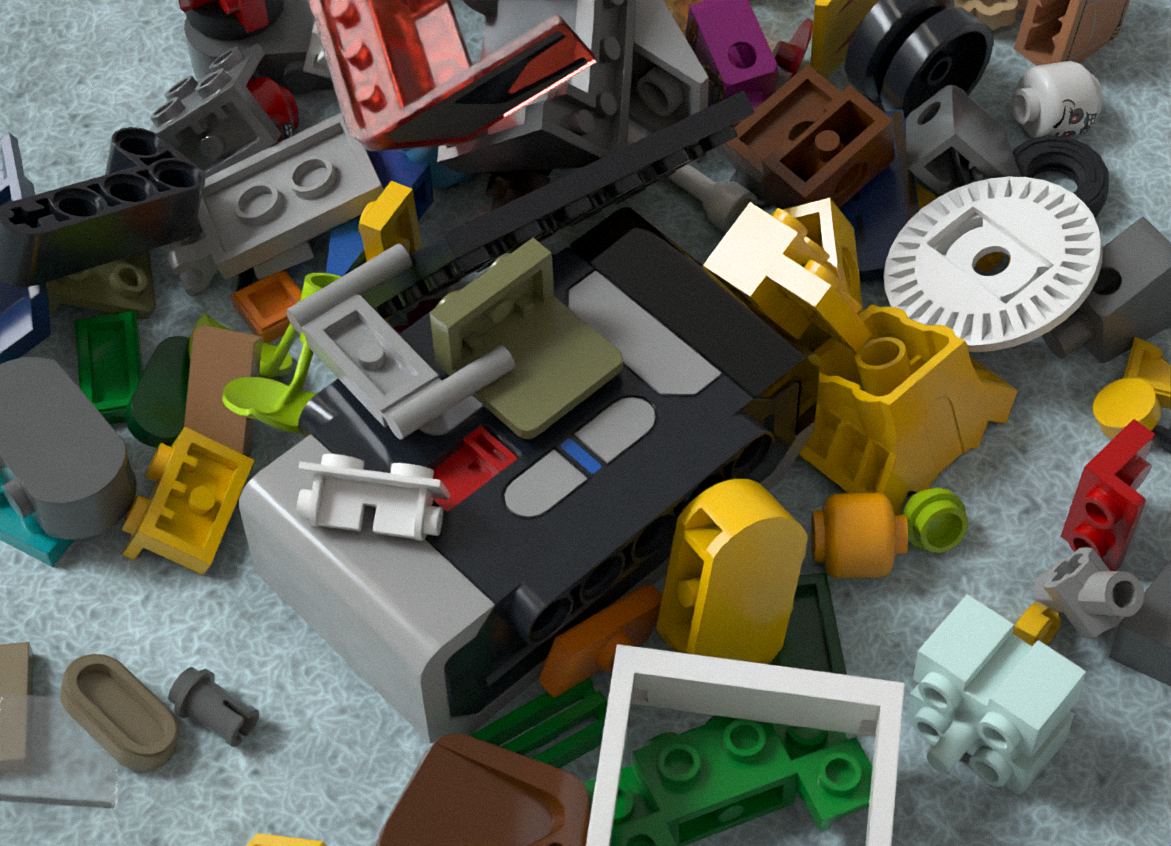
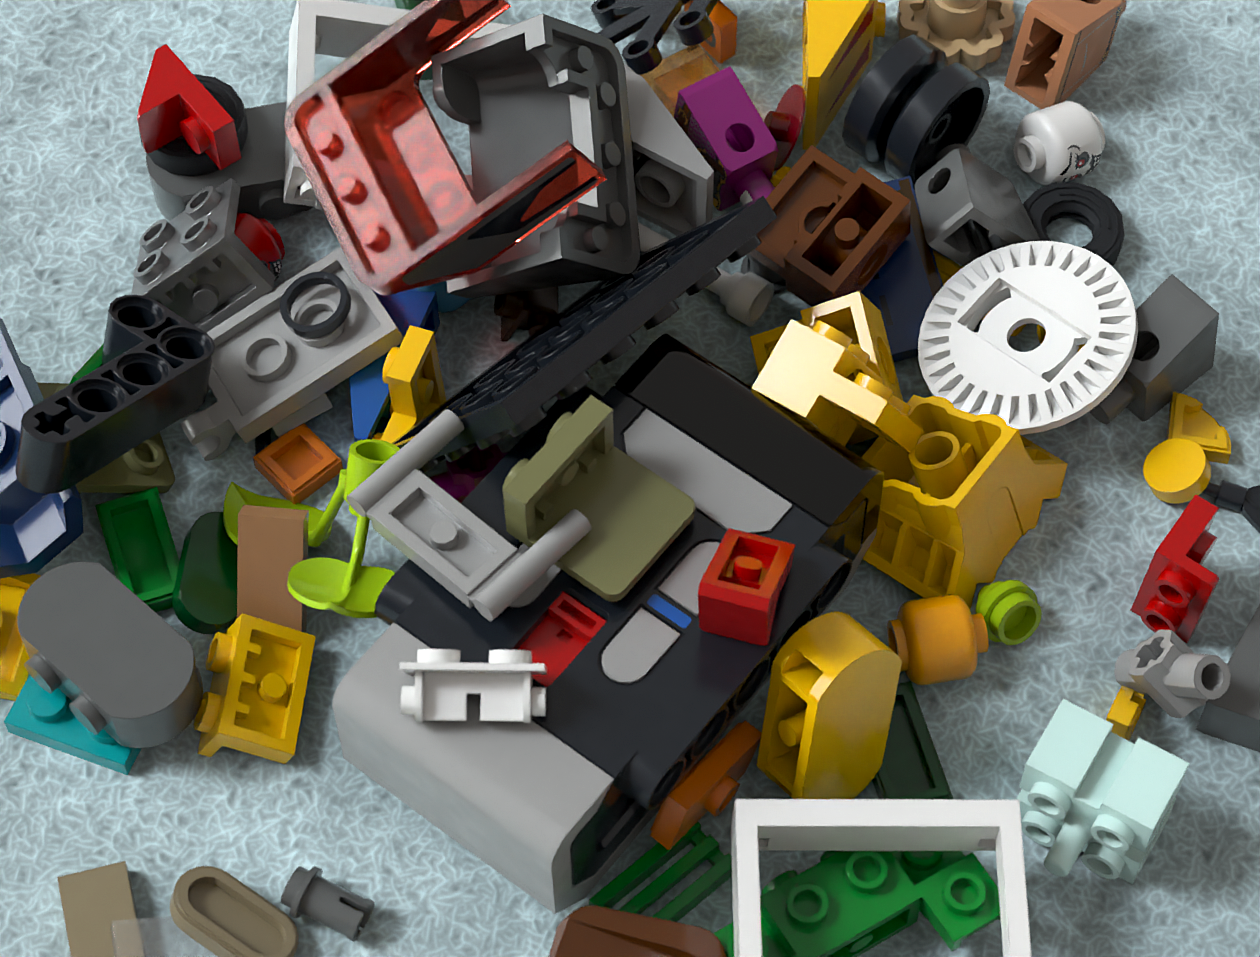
camera: 10 degrees left, 5 degrees up
(301, 140) = (326, 326): none -> black piece
(649, 437) = (743, 586): none -> red slope

